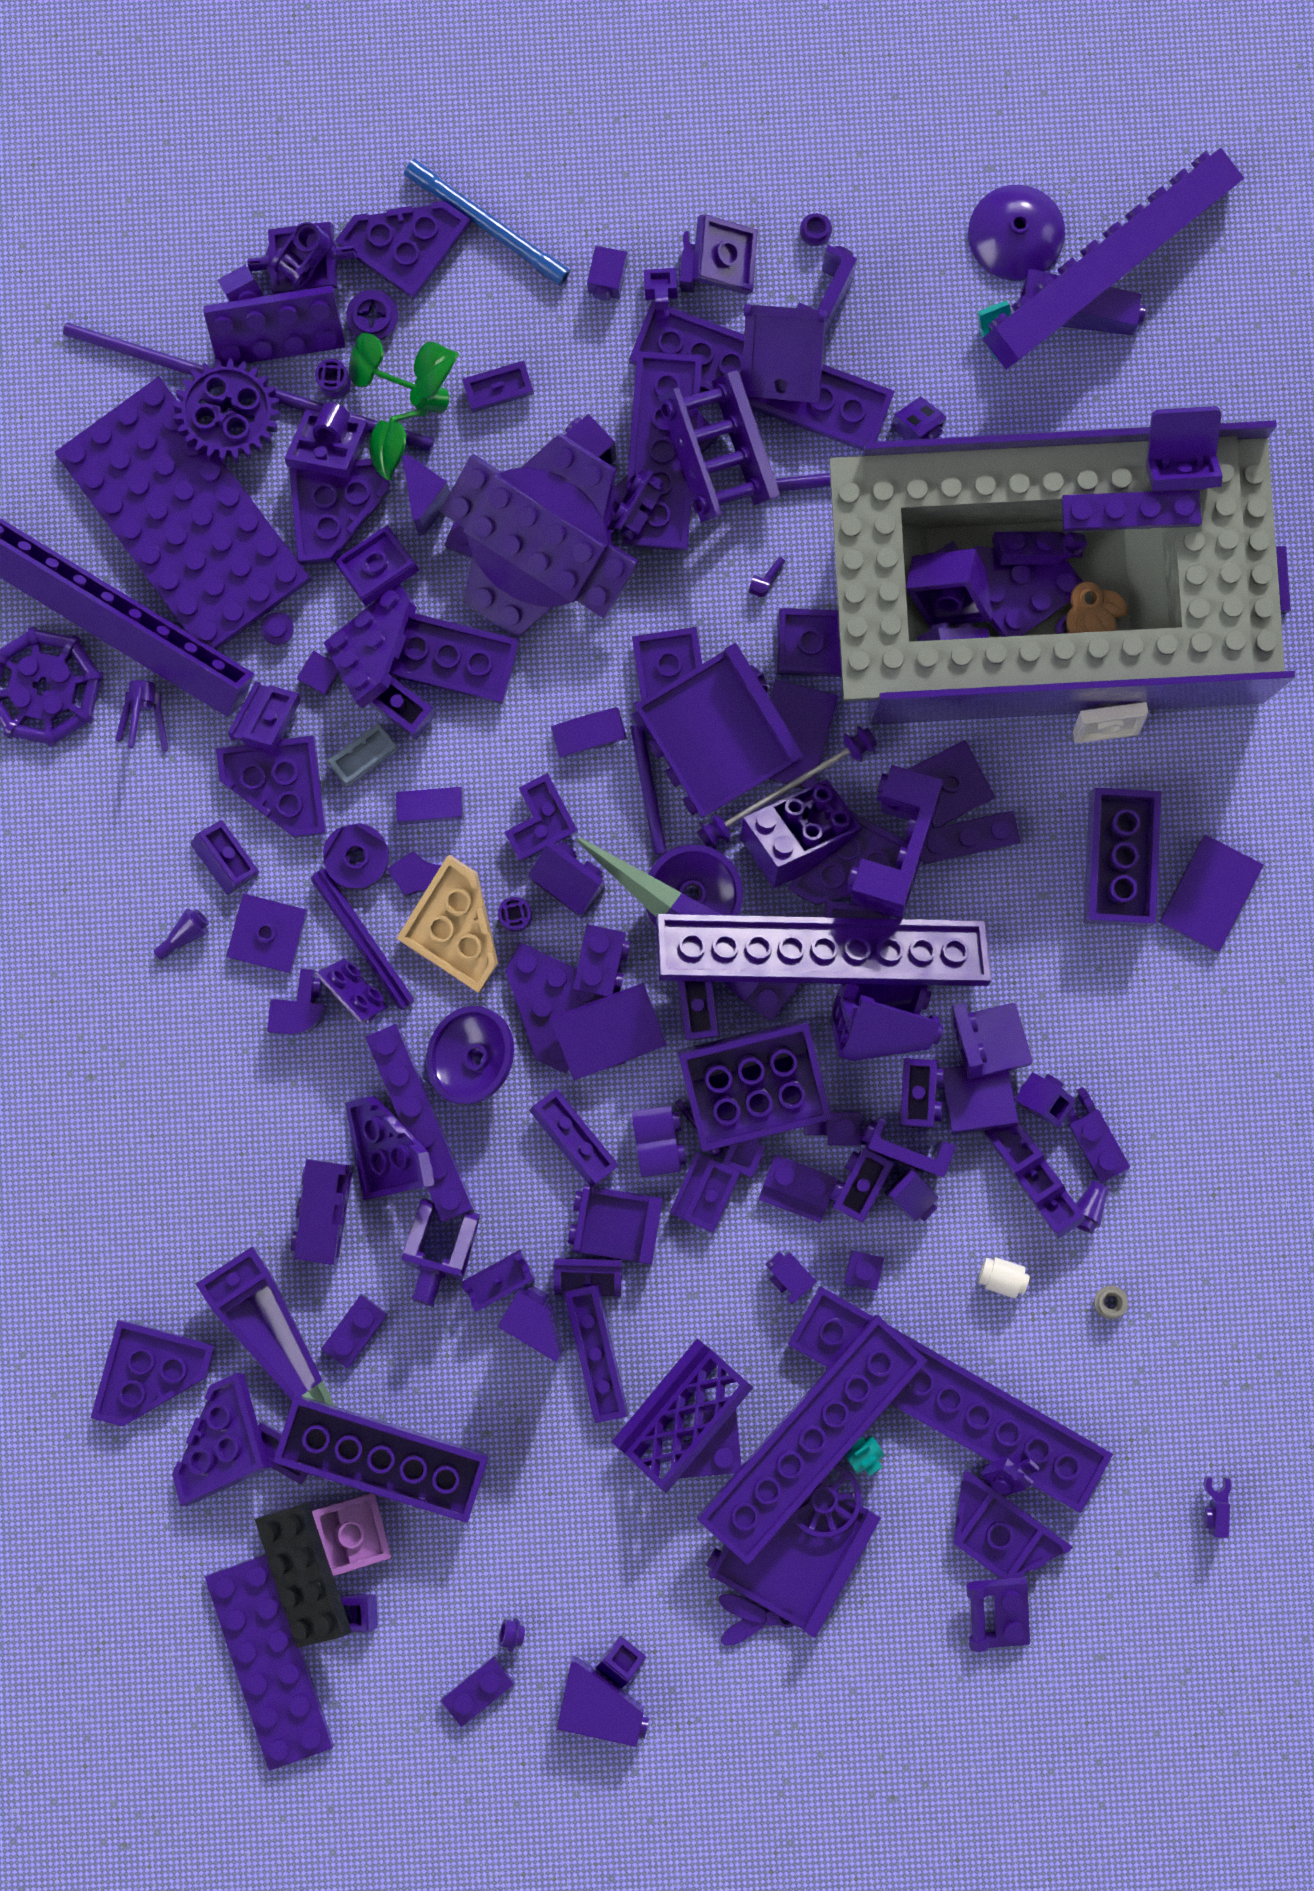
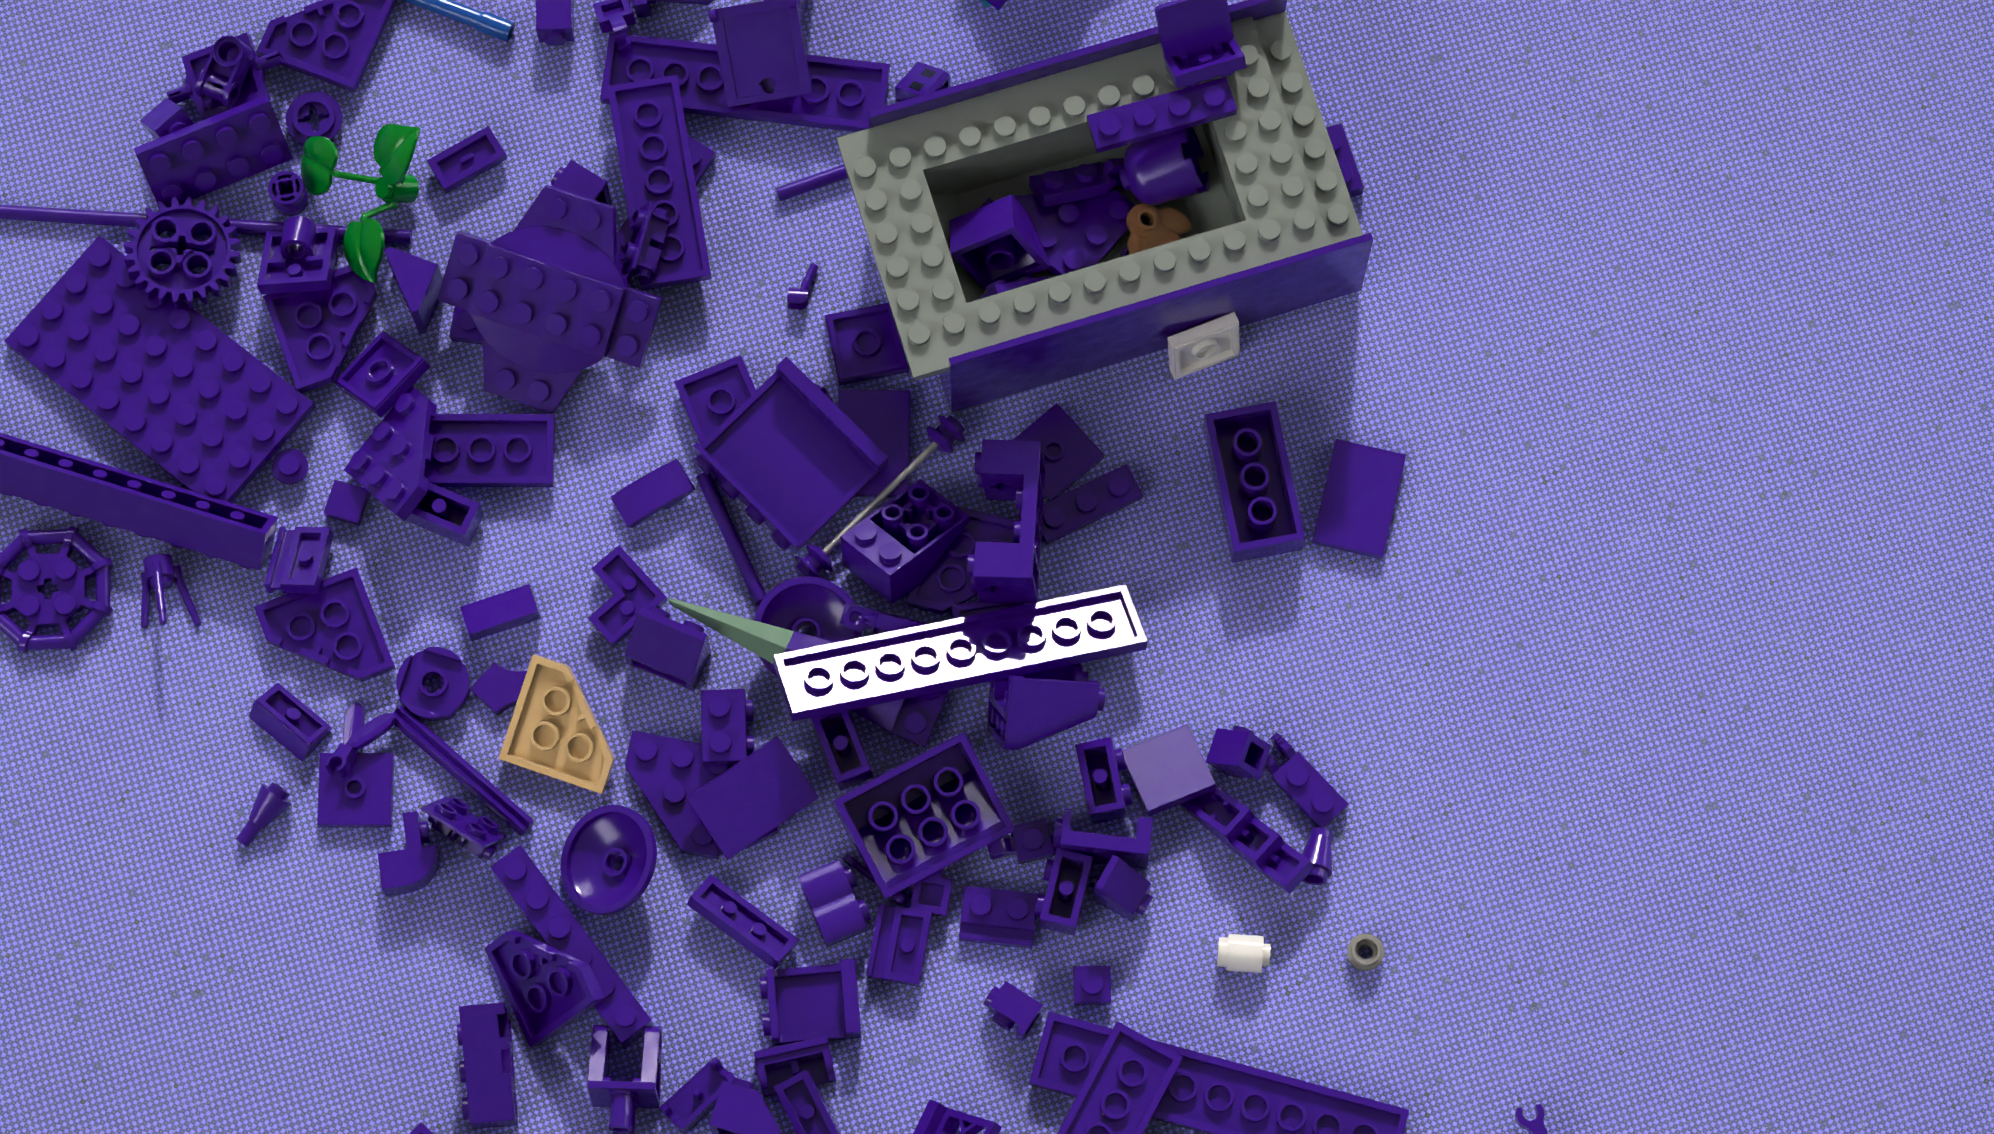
camera: 20 degrees left, 10 degrees down
(278, 888) = (357, 736): none -> dark purple piece
(363, 754) = (415, 575): sand blue plate -> none
(519, 918) = (623, 708): dark purple wheel -> none
(745, 438) = (743, 147): dark purple fence -> none
(759, 902) = (860, 618): none -> dark purple hinge
(990, 1039) = (1163, 706): dark purple bracket -> none
(1118, 557) = (1165, 168): none -> dark purple cylinder

